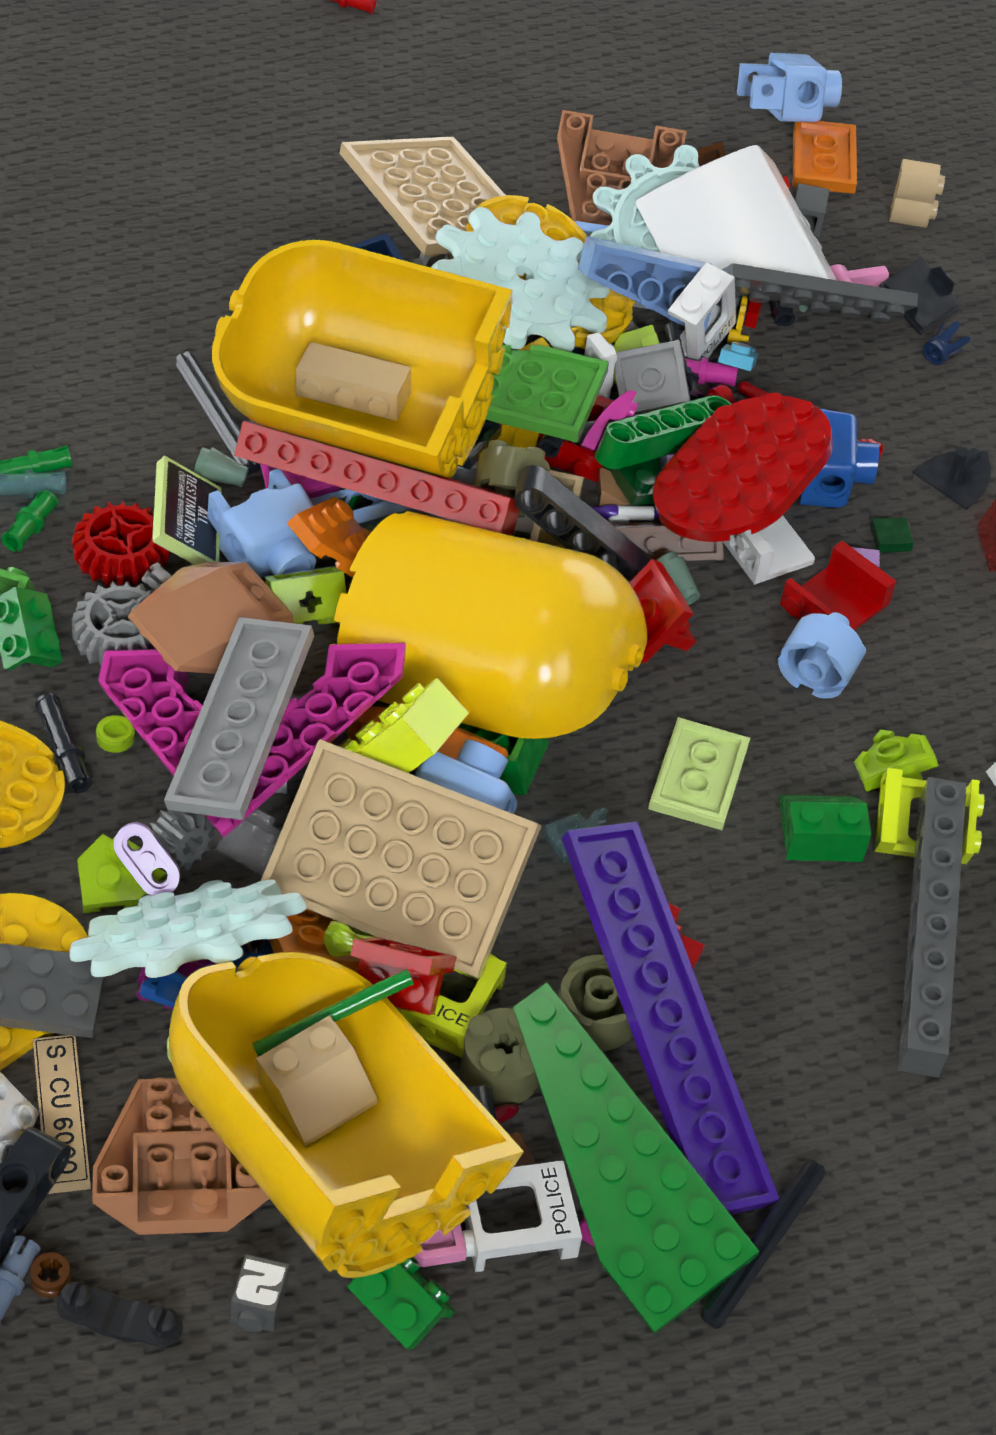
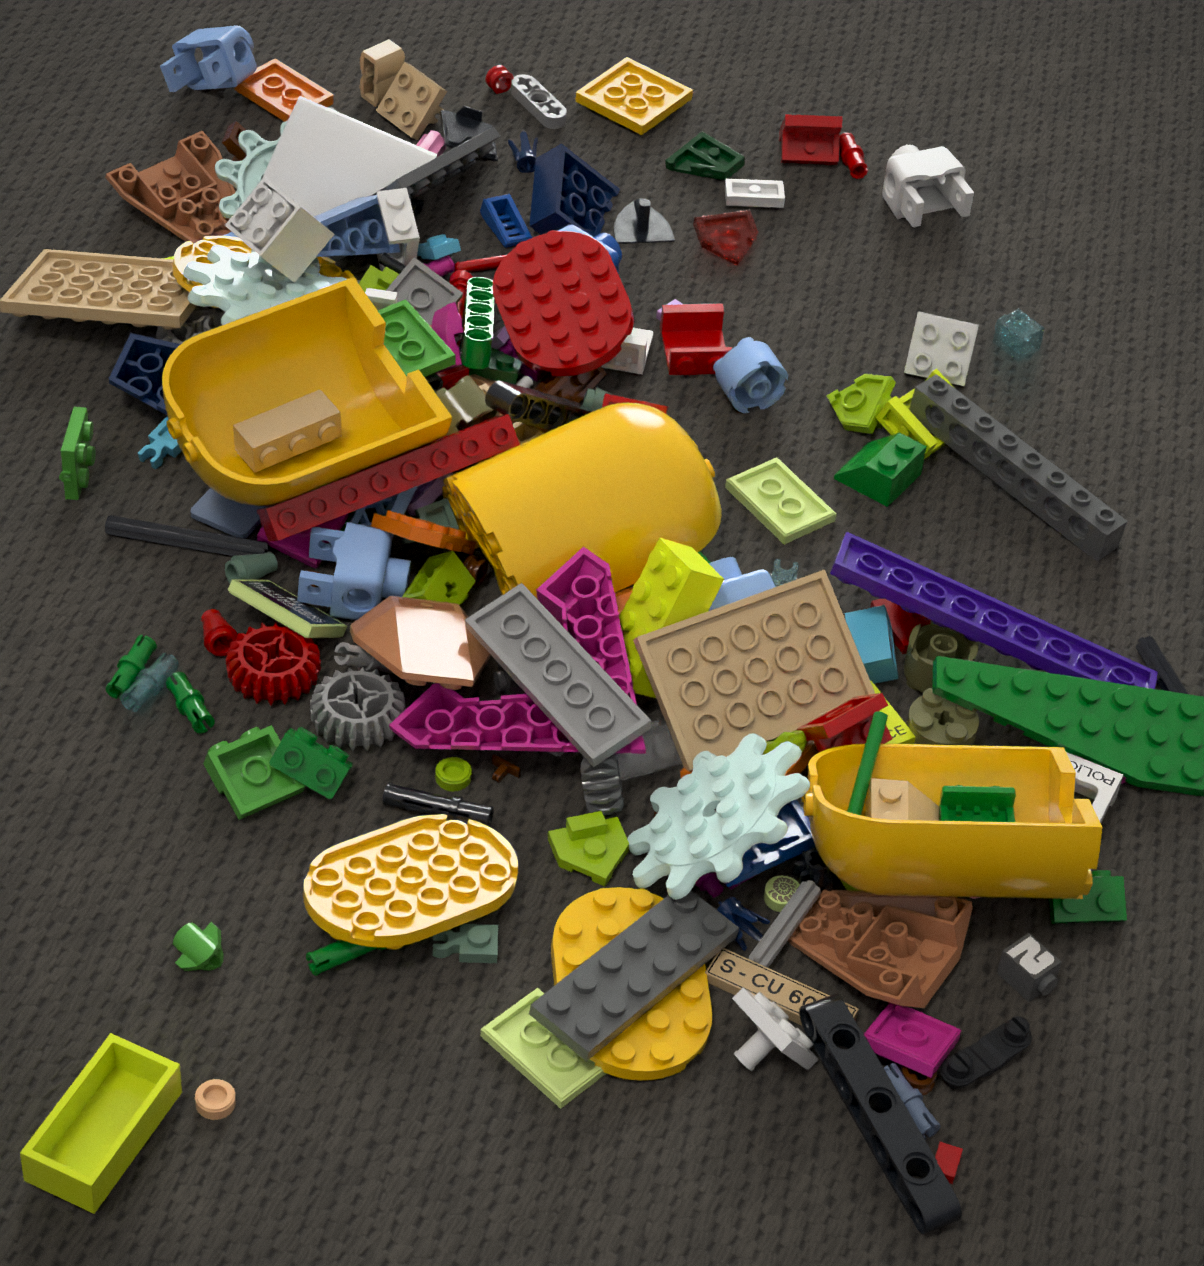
camera: 50 degrees left, 5 degrees down
(81, 1244) = (912, 1038): none -> dark pink tile
(121, 1021) = (743, 918): none -> dark blue piece
(125, 488) = (217, 633): none -> red cone
(126, 1069) = (785, 923): none -> light grey axle
(144, 860) = (613, 810): plate -> none
(150, 764) = (504, 768): none -> reddish brown piece
(215, 284) = (77, 453): none -> bright green plate
(387, 1135) = (977, 804): none -> green bracket
(556, 940) = (874, 642): none -> medium azure brick
(558, 225) = (279, 229): none -> white brick
(849, 364) = (504, 204): none -> blue slope
(892, 534) = (664, 285): dark green tile -> none
(907, 233) = (412, 101): none -> tan plate
(916, 404) = (569, 193): none -> dark blue wedge

